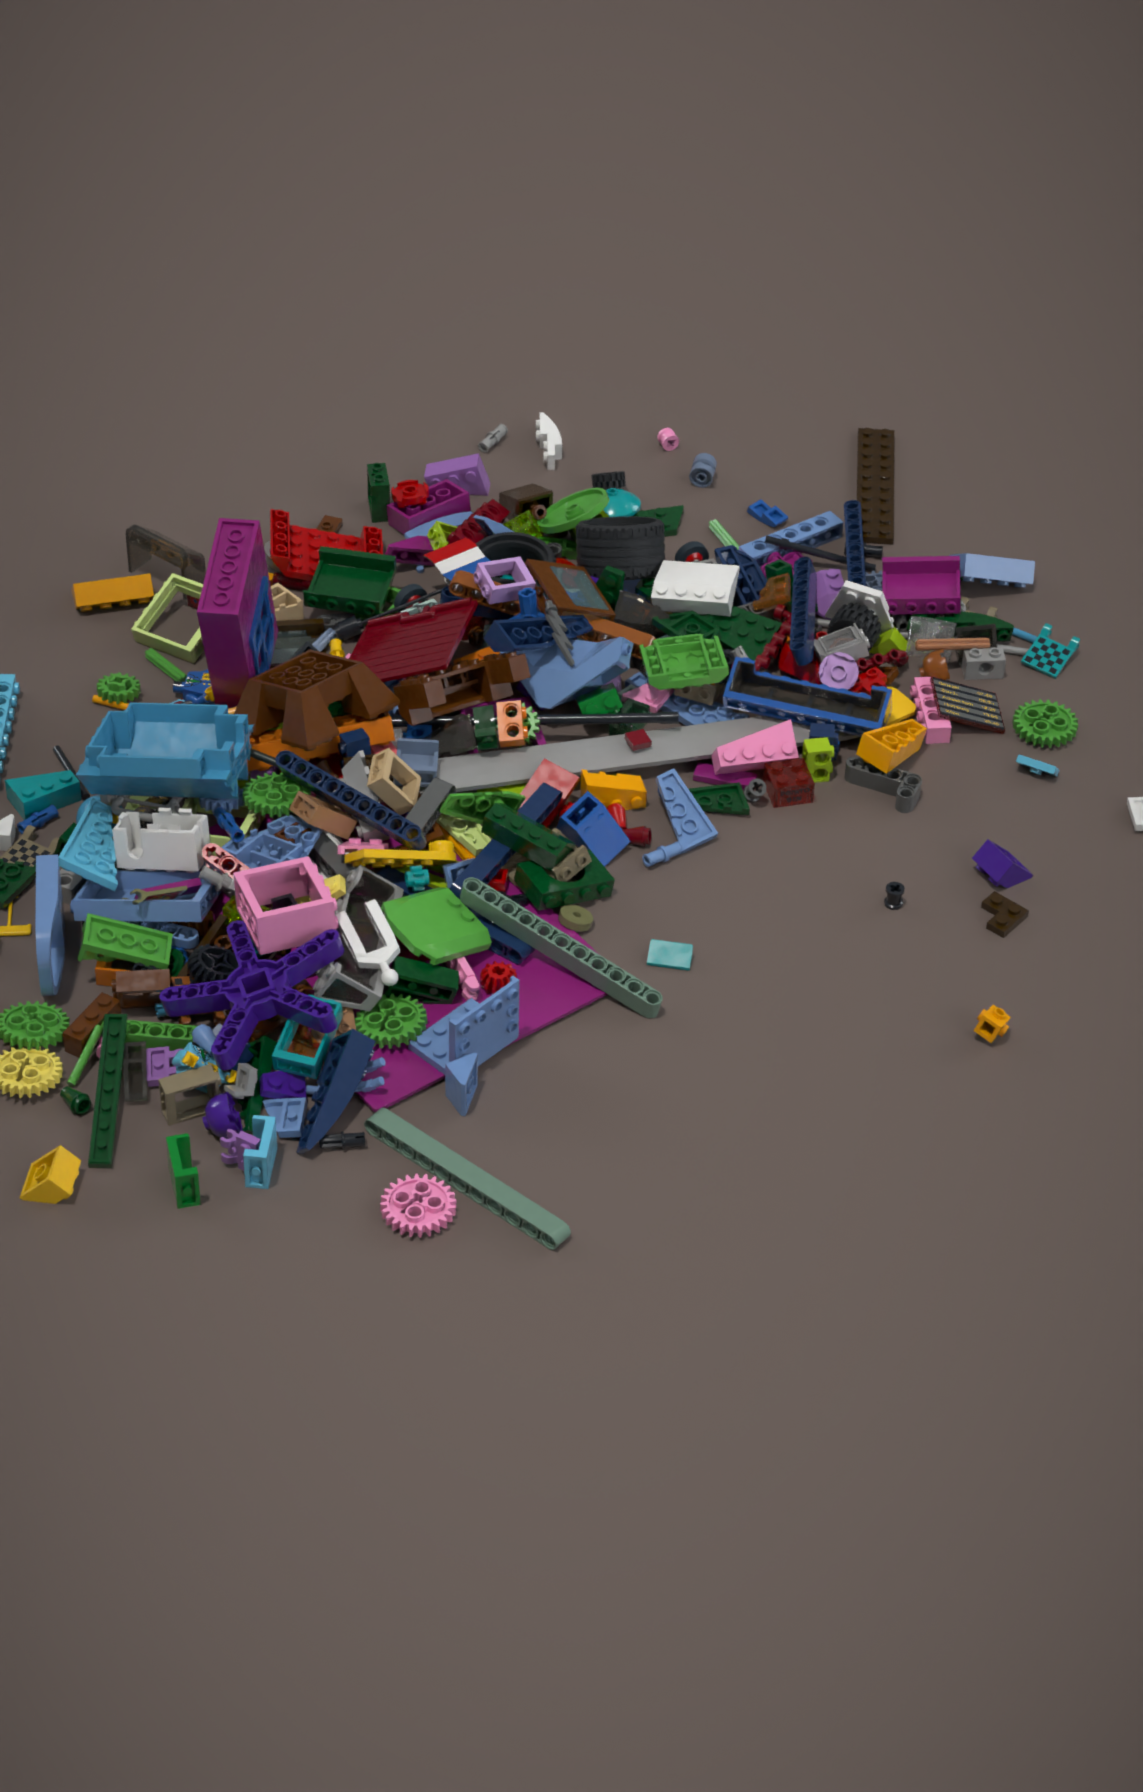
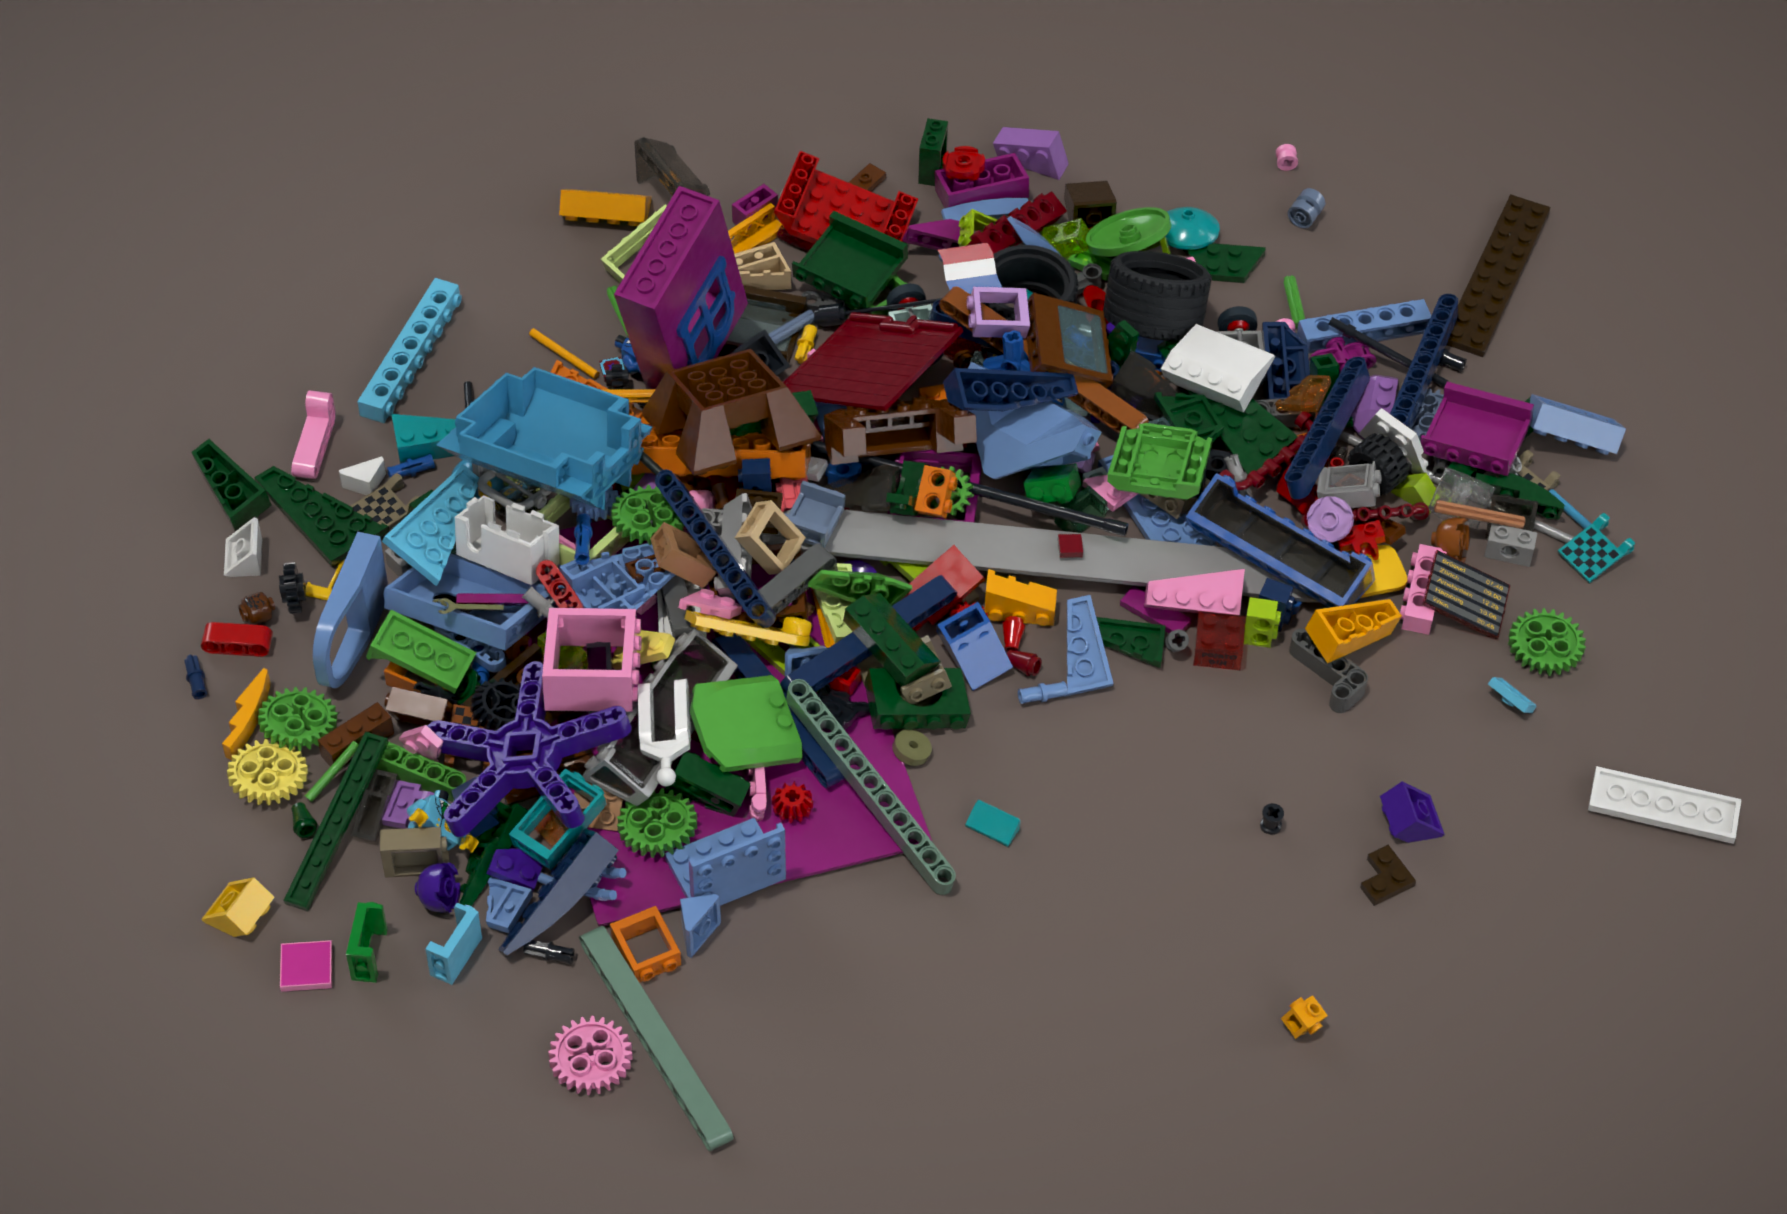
camera: 20 degrees right, 10 degrees up
(118, 688) = (559, 327): bright green gear -> none
(133, 1207) = (306, 965): none -> dark pink tile
(159, 1008) = (423, 742): none -> bright pink wing
(204, 1037) = (451, 788): medium blue cone -> none
(237, 1145) = (437, 931): medium lavender plate -> none
(244, 1083) = (474, 854): light grey bracket -> none
(417, 878) = (753, 658): teal gear -> none
(418, 1095) = (640, 924): none -> orange window
(492, 438) = (1094, 108): light grey pin -> none
(541, 509) = (1091, 226): reddish brown pin -> none
(549, 440) = (1153, 127): white slope -> none
(559, 628) = (1031, 383): dark grey piece -> none
(609, 480) = (1193, 196): black tyre -> none
(766, 514) = (1355, 282): blue slope -> none

